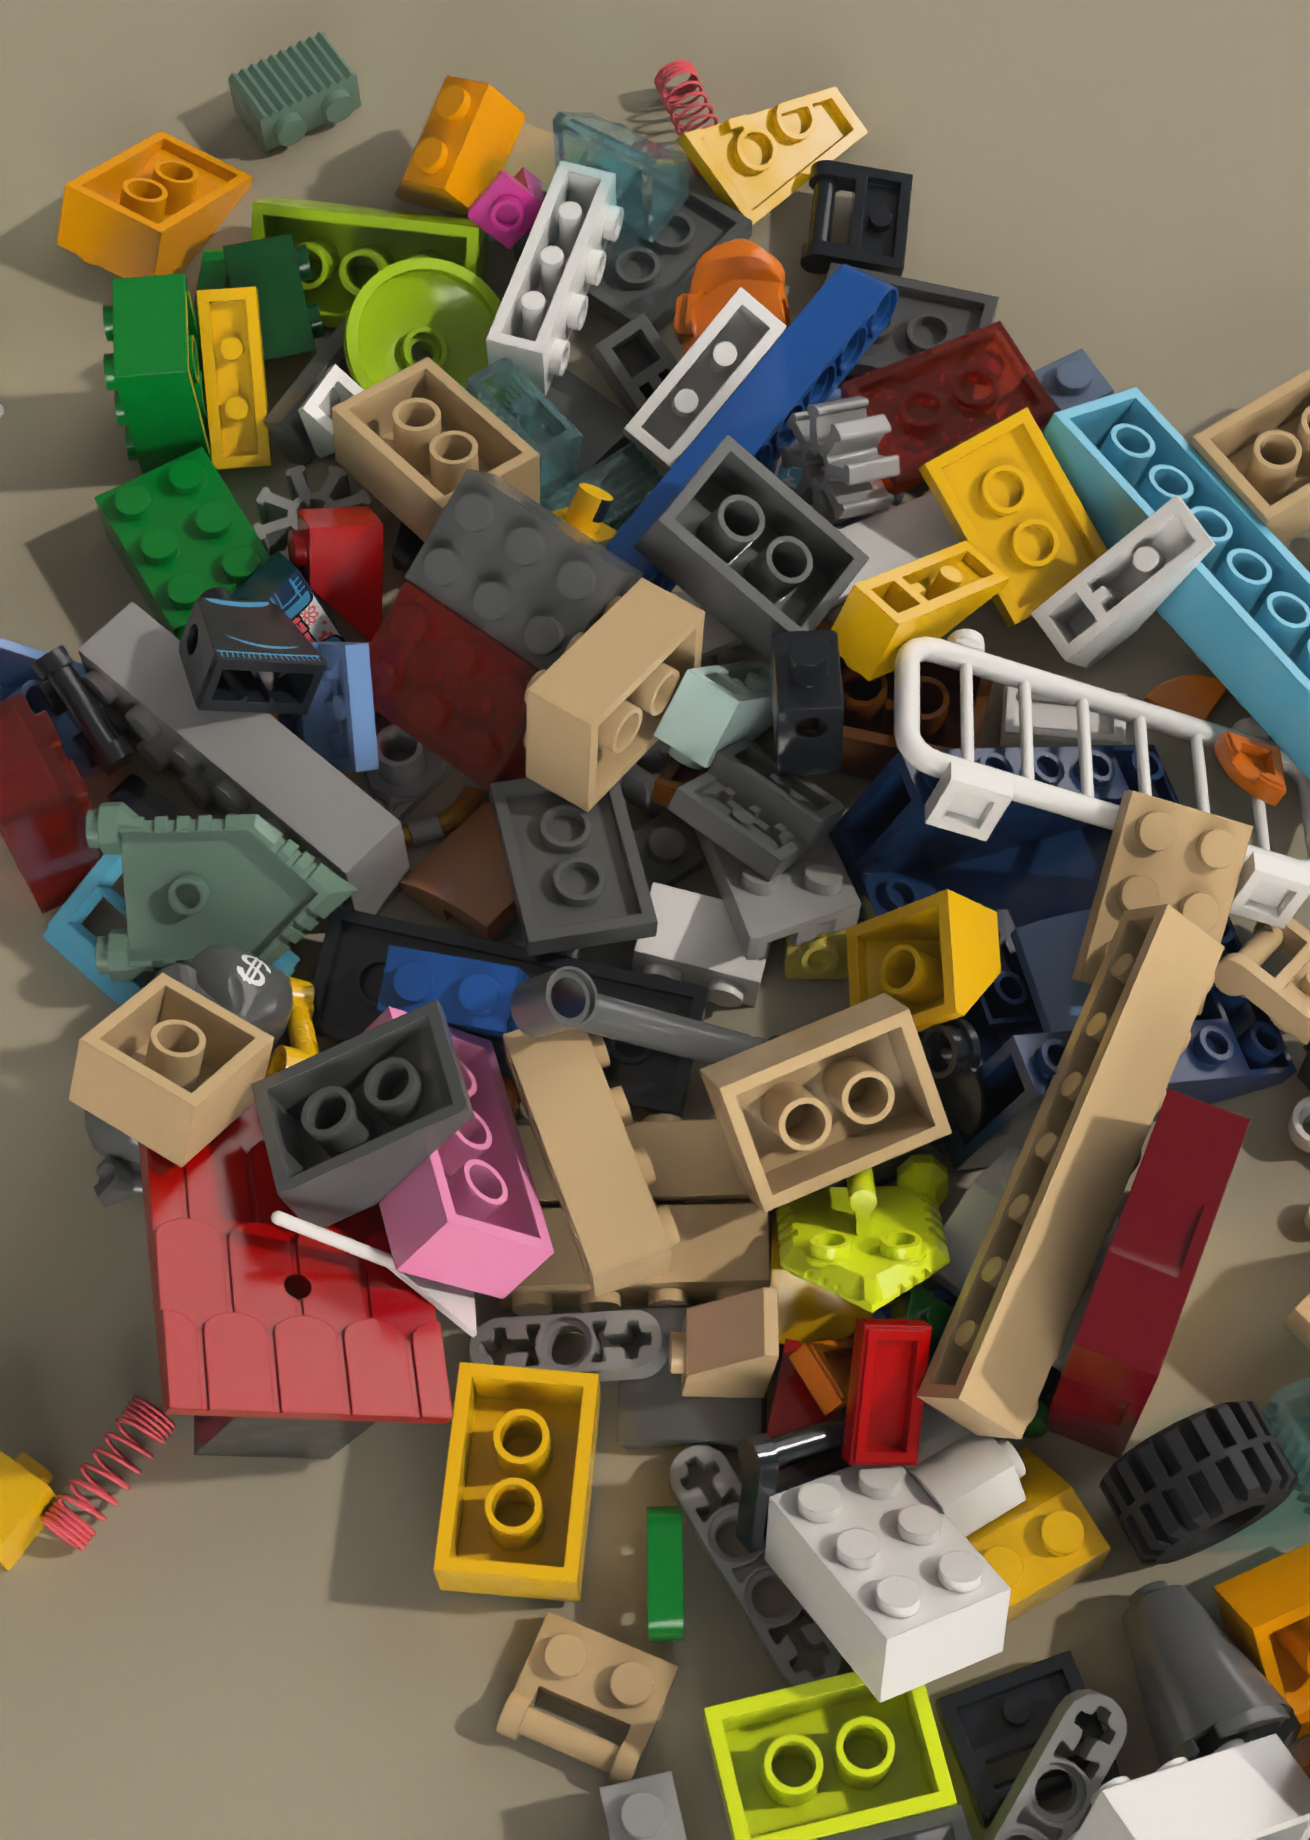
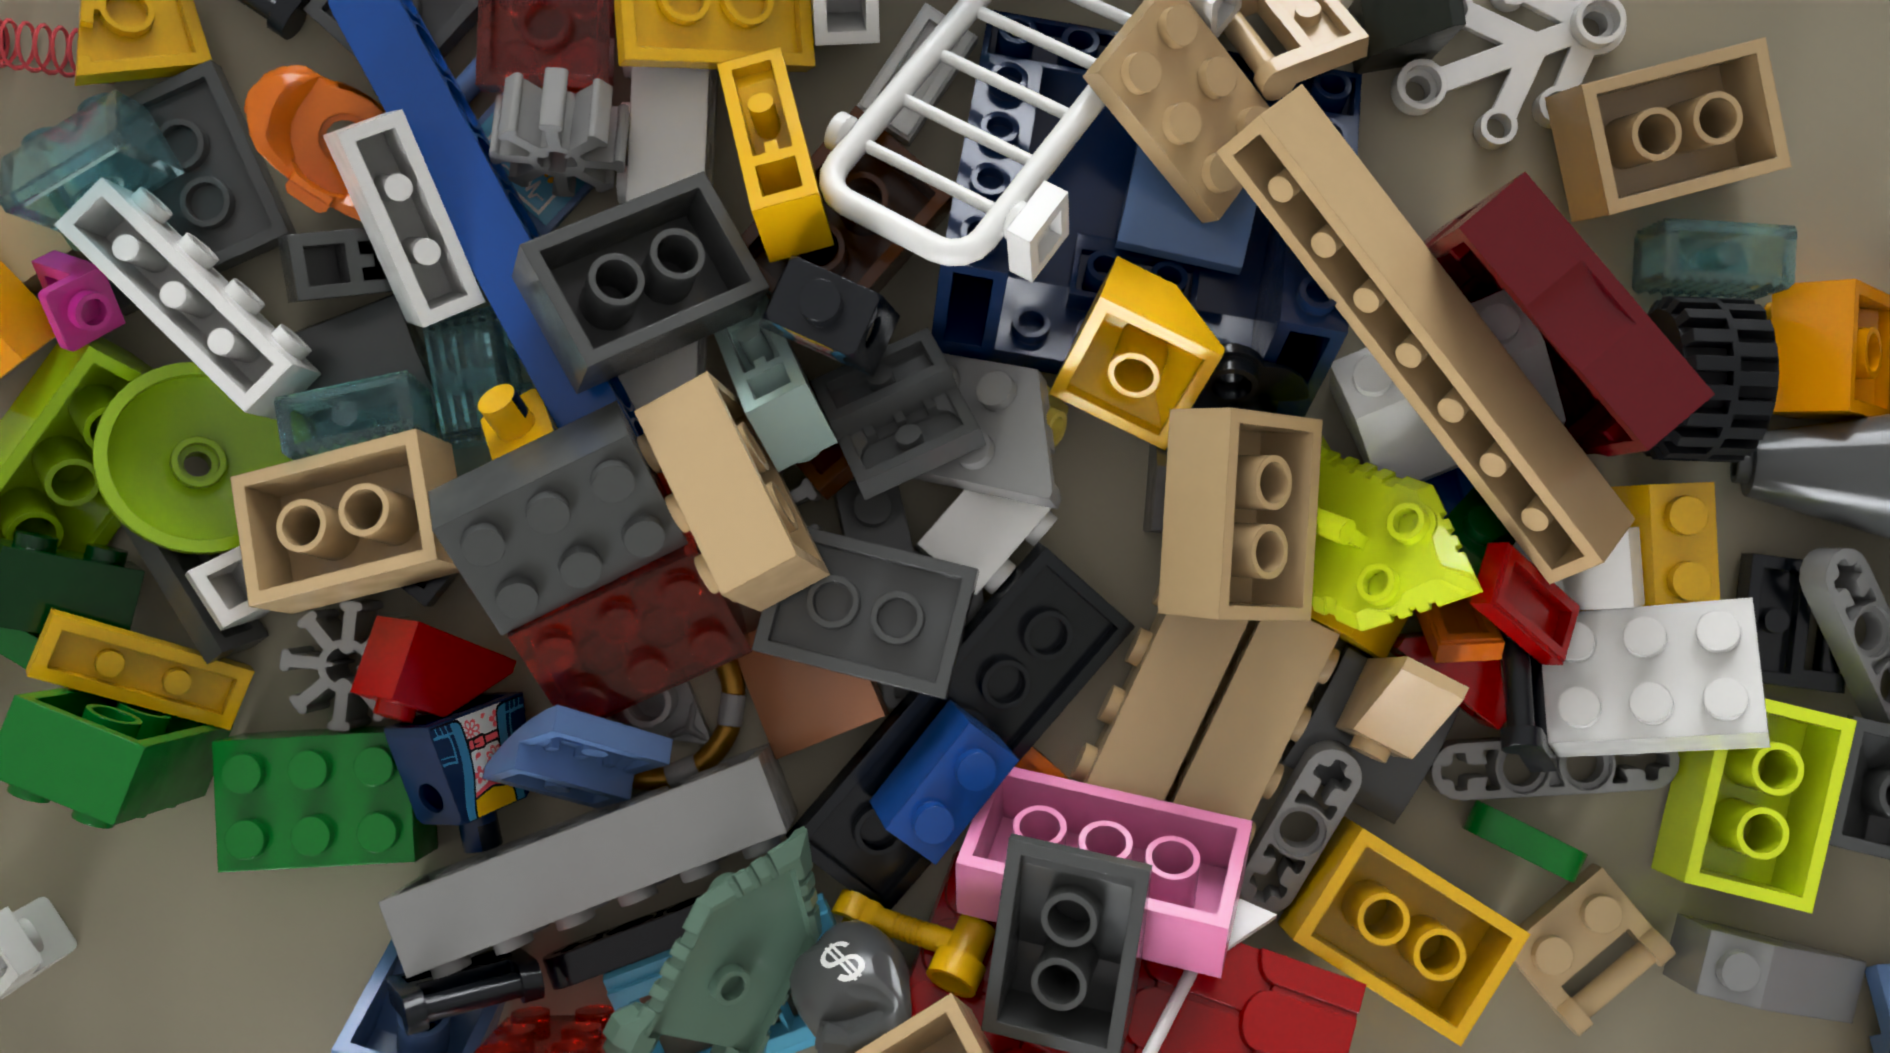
camera: 70 degrees left, 25 degrees up
(248, 657) = (505, 826): black torso -> none
(591, 1158) = (1162, 739): tan brick -> none
(617, 1019) = (1052, 687): dark grey piece -> none

